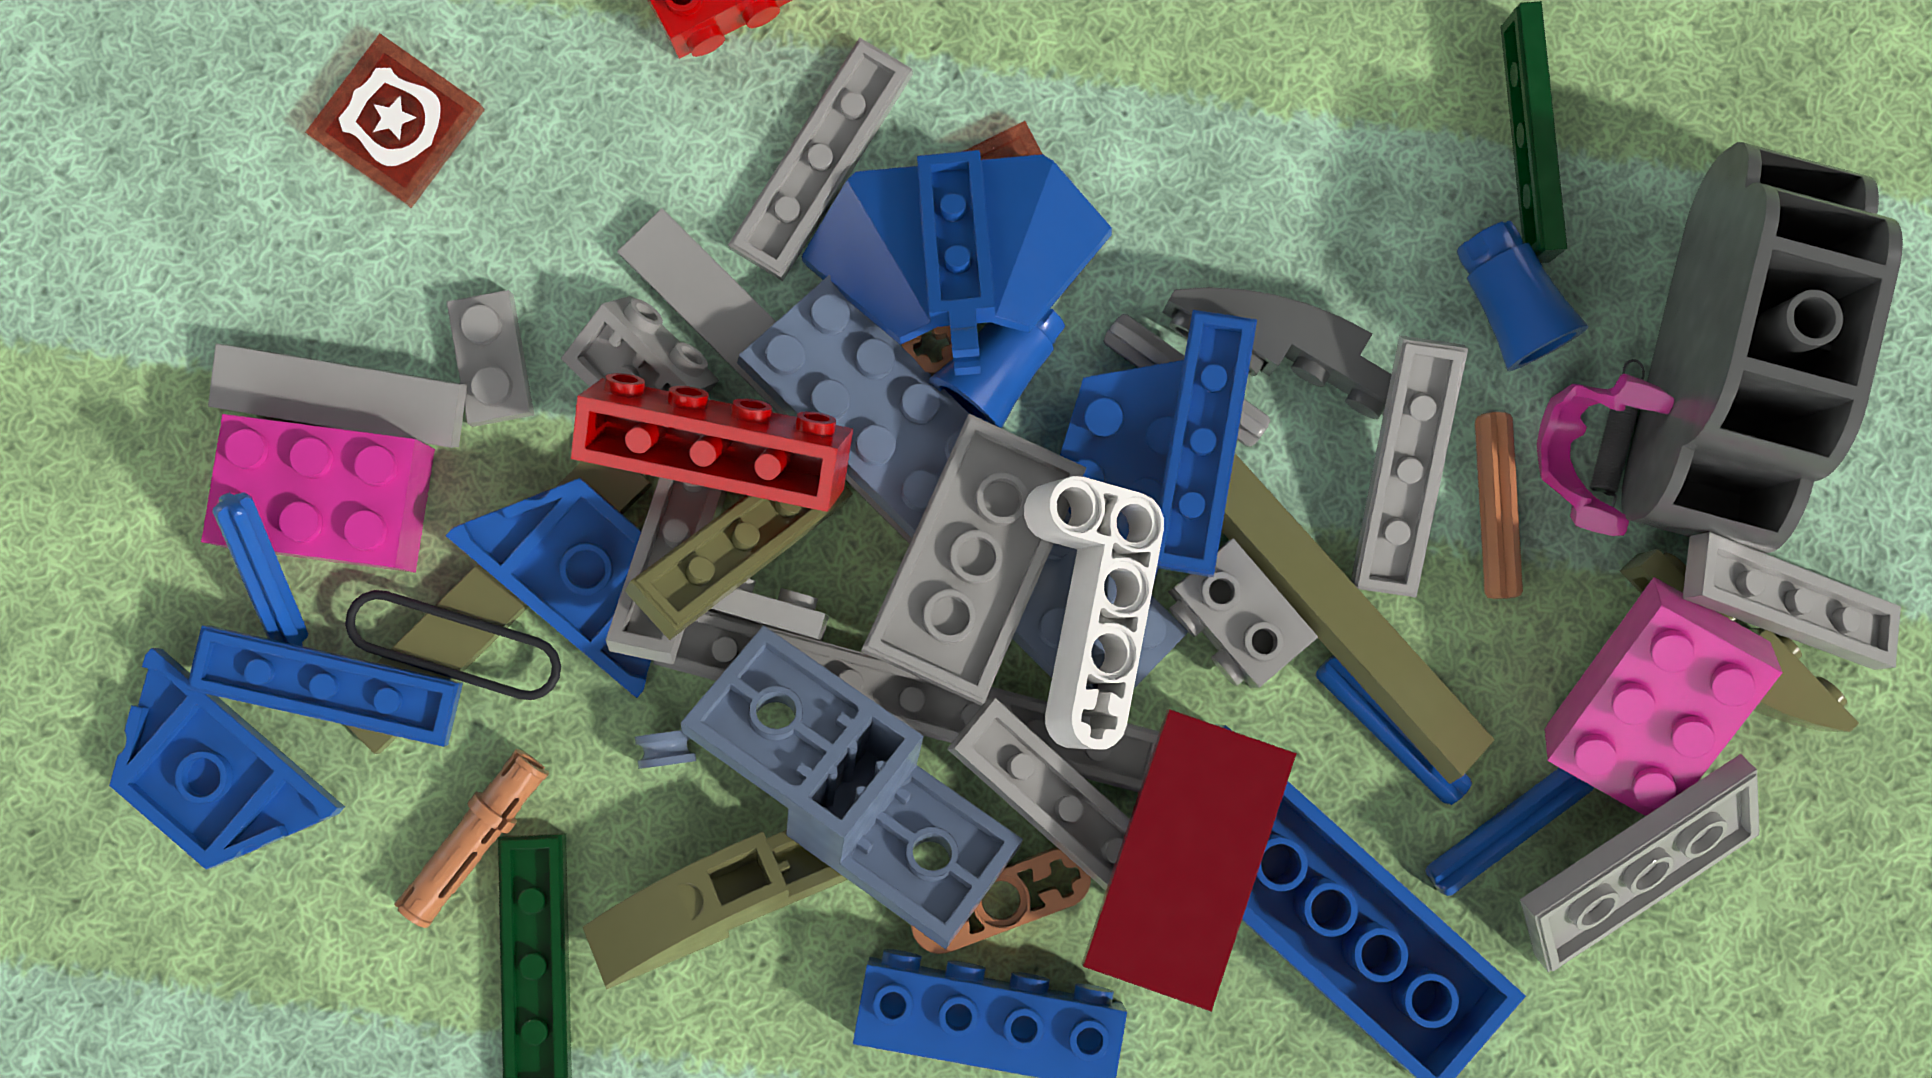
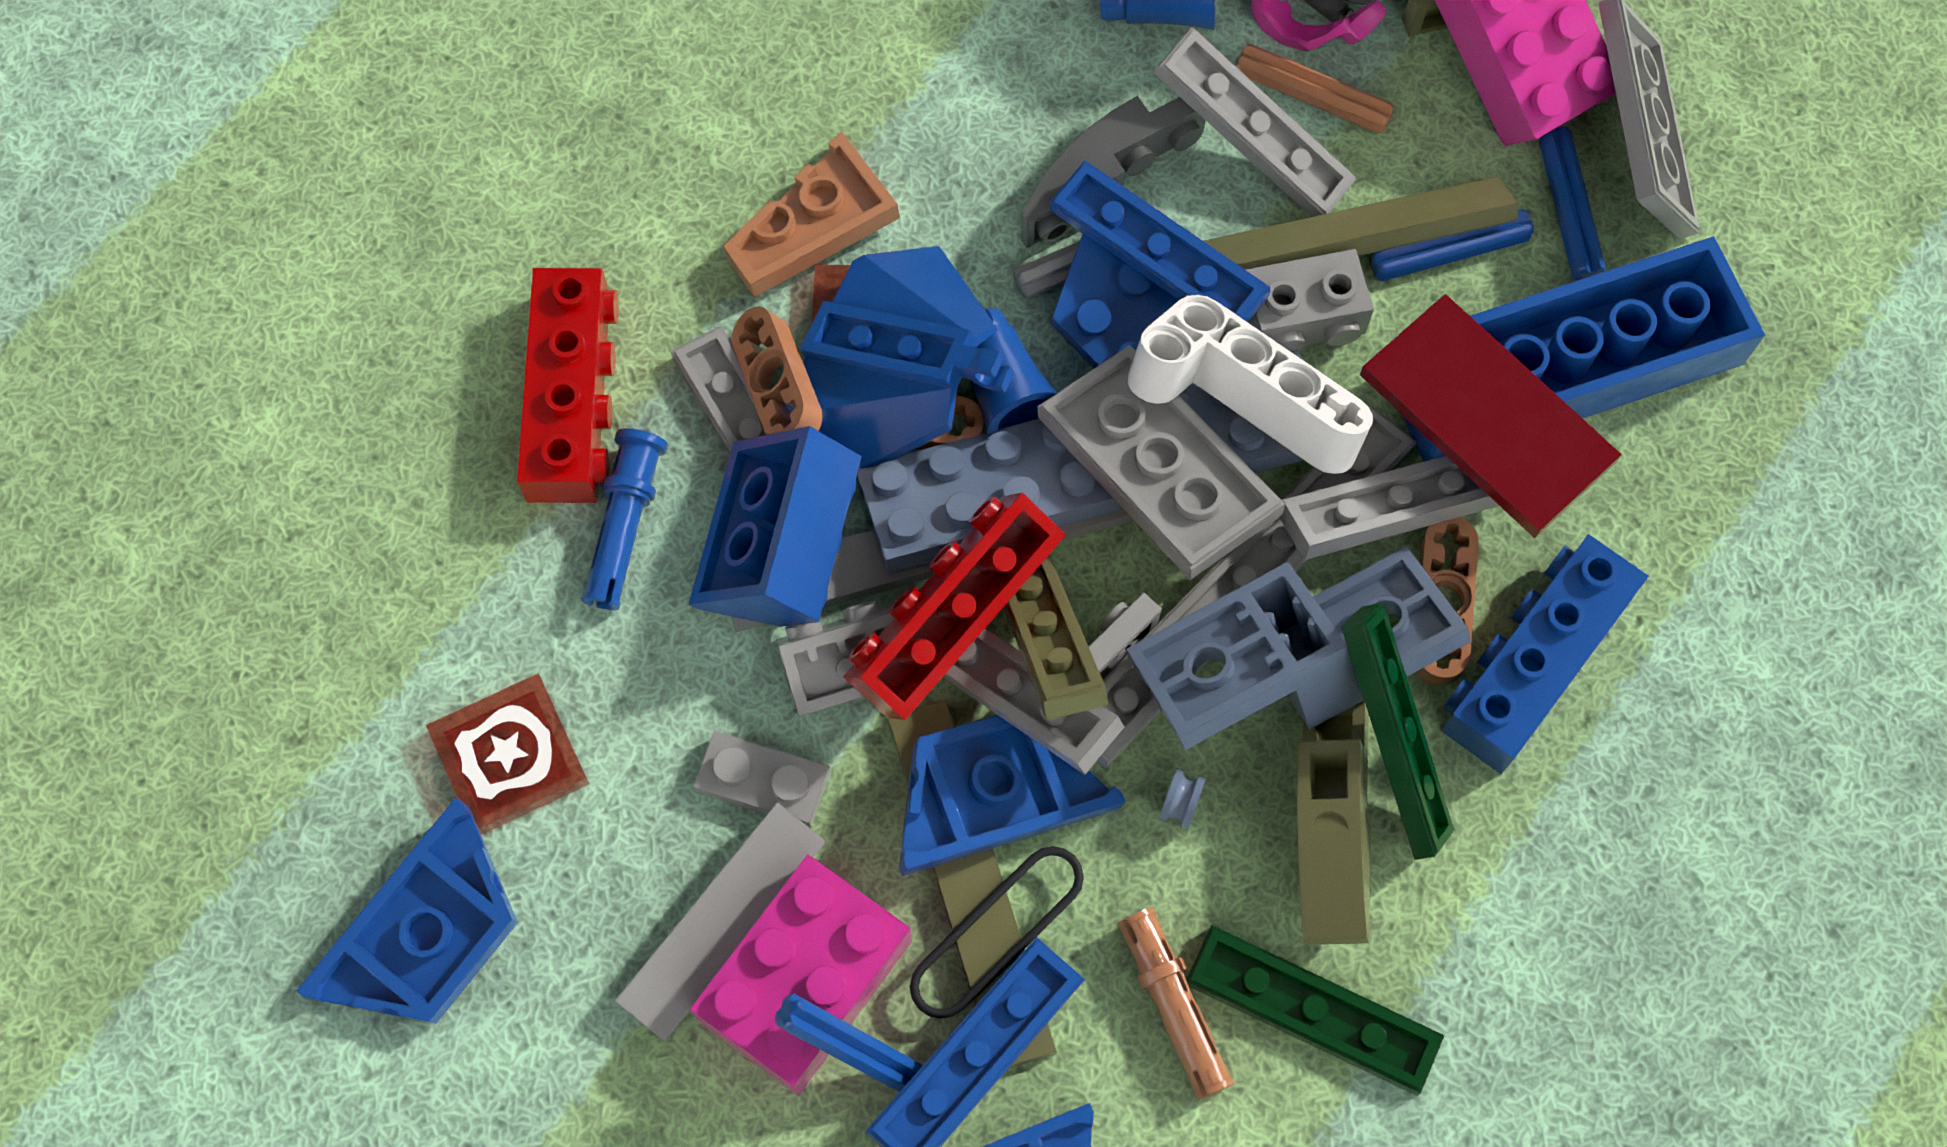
camera: 60 degrees left, 15 degrees down
(198, 141) = (422, 929): none -> blue wing
(694, 81) = (627, 491): none -> blue pin
(717, 238) = (776, 528): none -> blue slope
(814, 920) = (1398, 730): none -> dark green tile
(848, 178) = (758, 365): none -> nougat beam
(1072, 93) = (816, 218): none -> nougat wing

